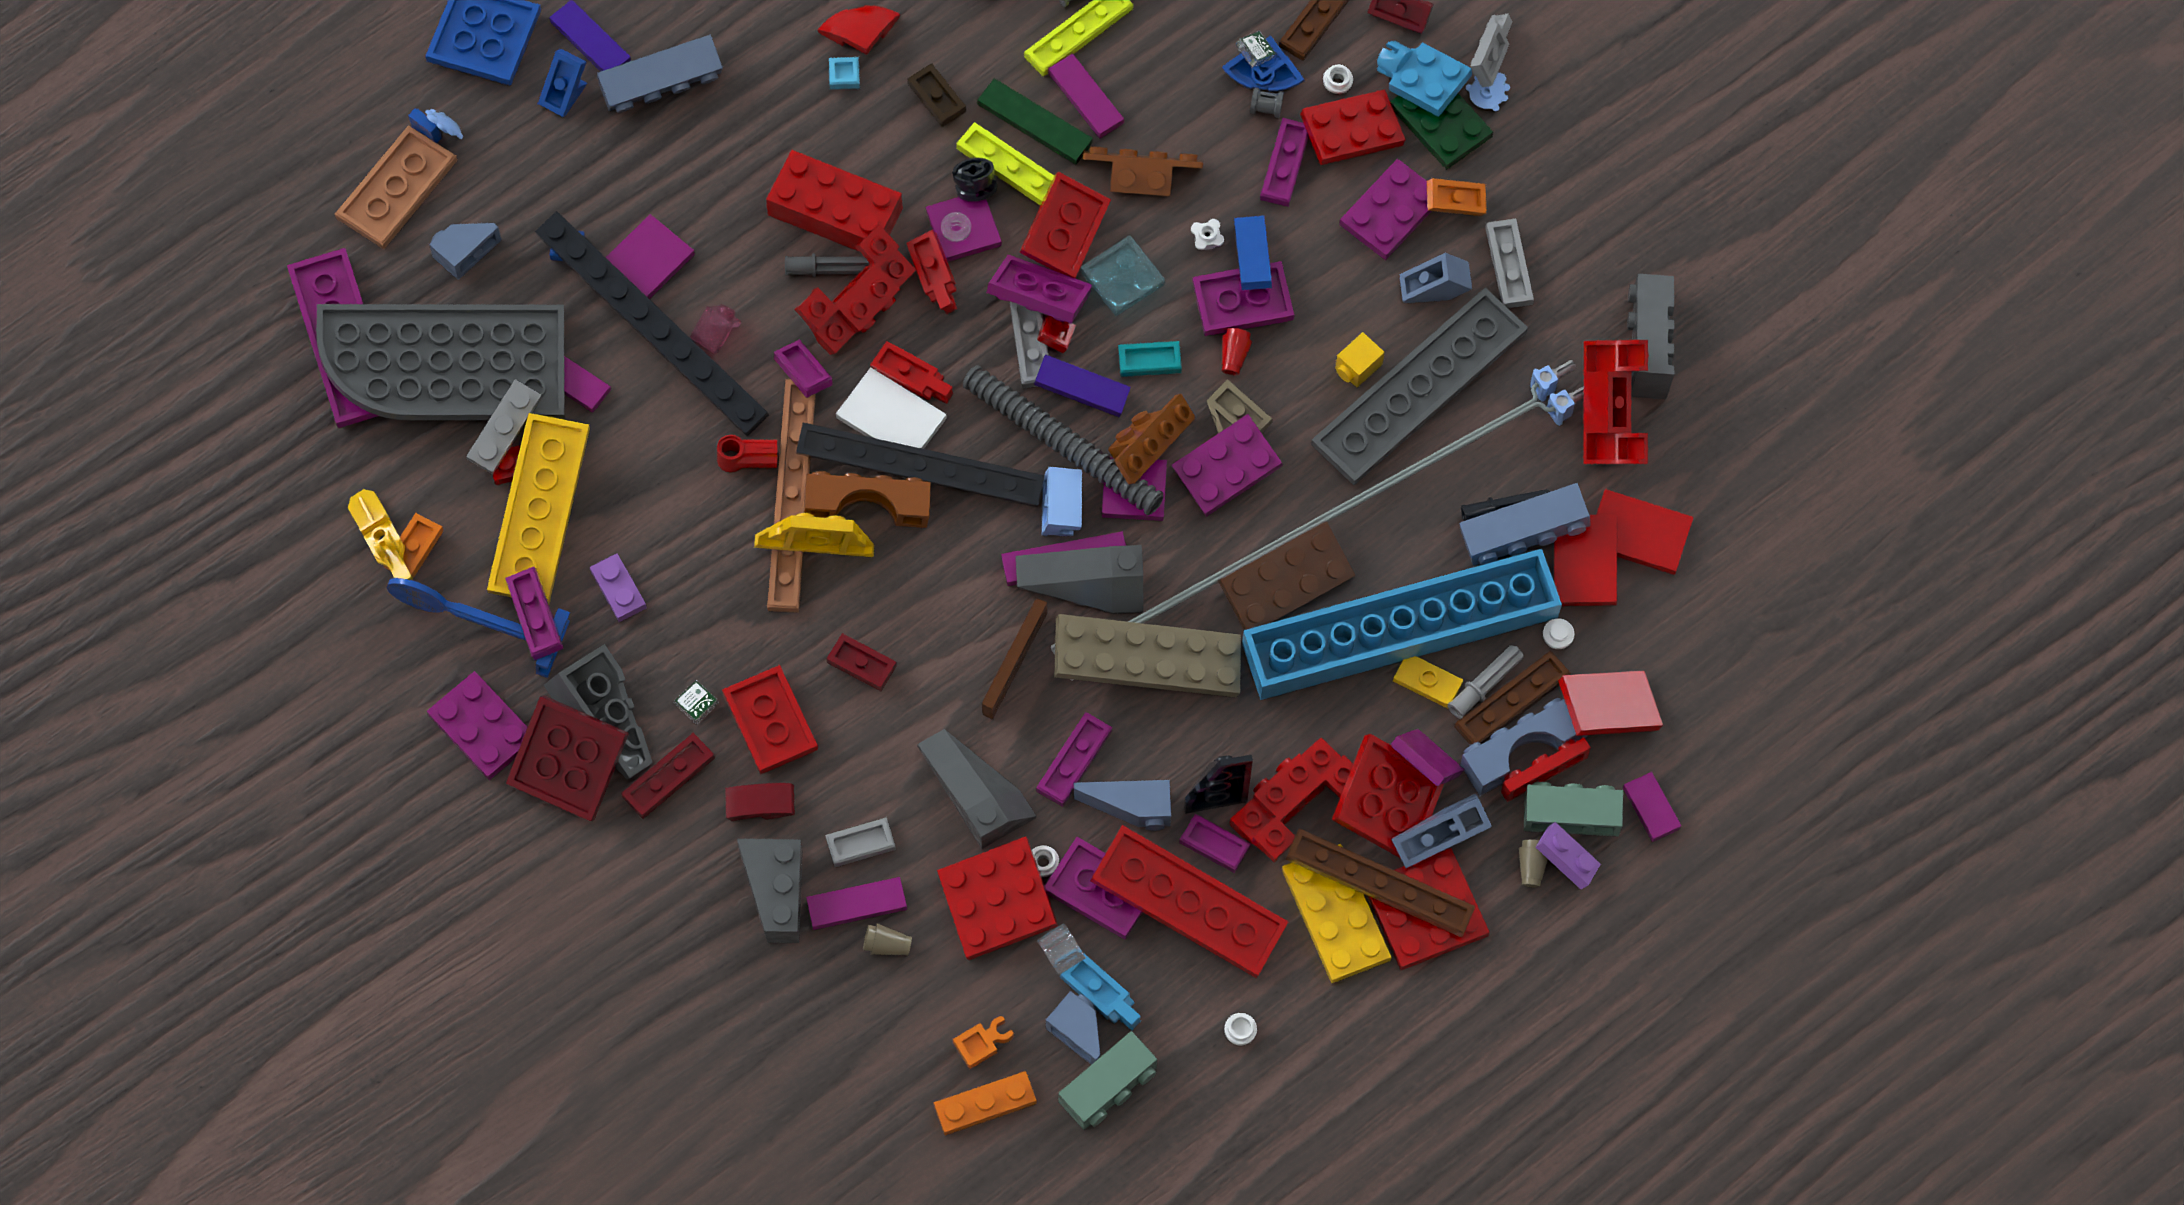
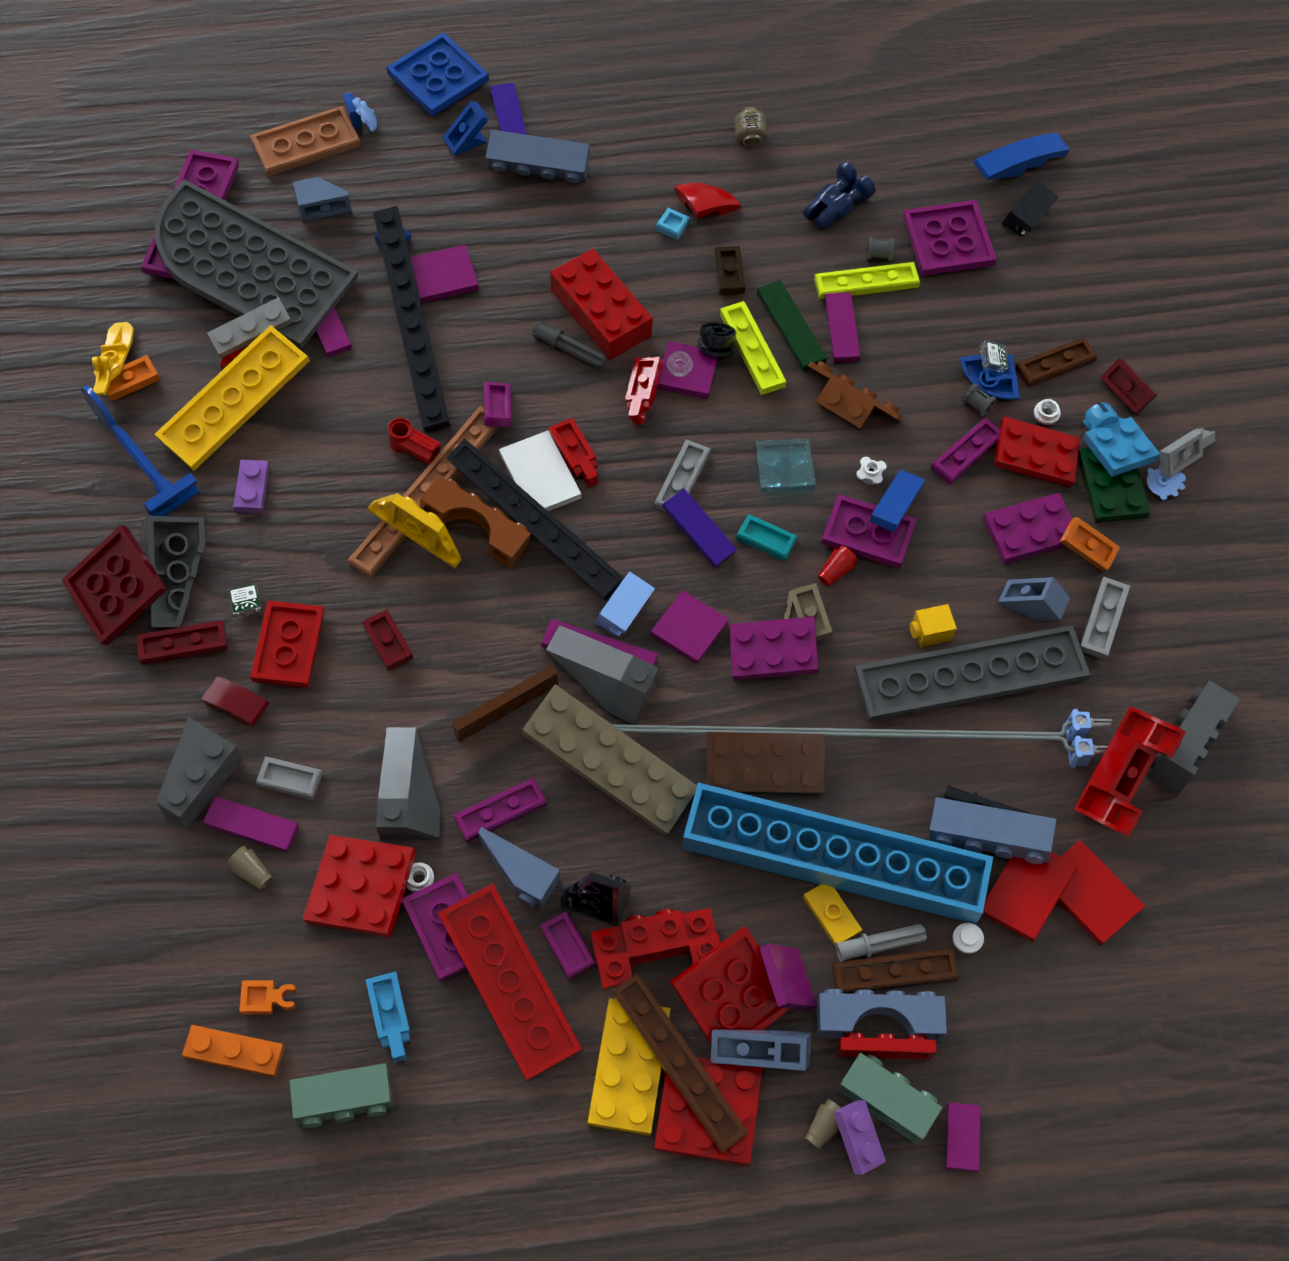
camera: 30 degrees right, 5 degrees down
(480, 725) = (77, 526): magenta plate -> none
(534, 613) = (170, 467): magenta tile -> none
(715, 327) = (454, 342): clear pink bracket -> none
(862, 298) = (575, 377): red bracket -> none
(1039, 289) = (712, 440): magenta plate -> none
(1056, 333) = (705, 479): red tile -> none
(1060, 438) = (656, 560): dark grey piece -> none
(1061, 949) = (378, 958): clear brick -> none
(1065, 225) = (762, 405): red plate -> none
(1076, 1026) = (349, 1031): sand blue slope -> none
(1149, 437) = (724, 593): dark orange bracket -> none
(1240, 1029) = (483, 1118): white plate -> none
(1610, 703) = (977, 1023): tile -> none

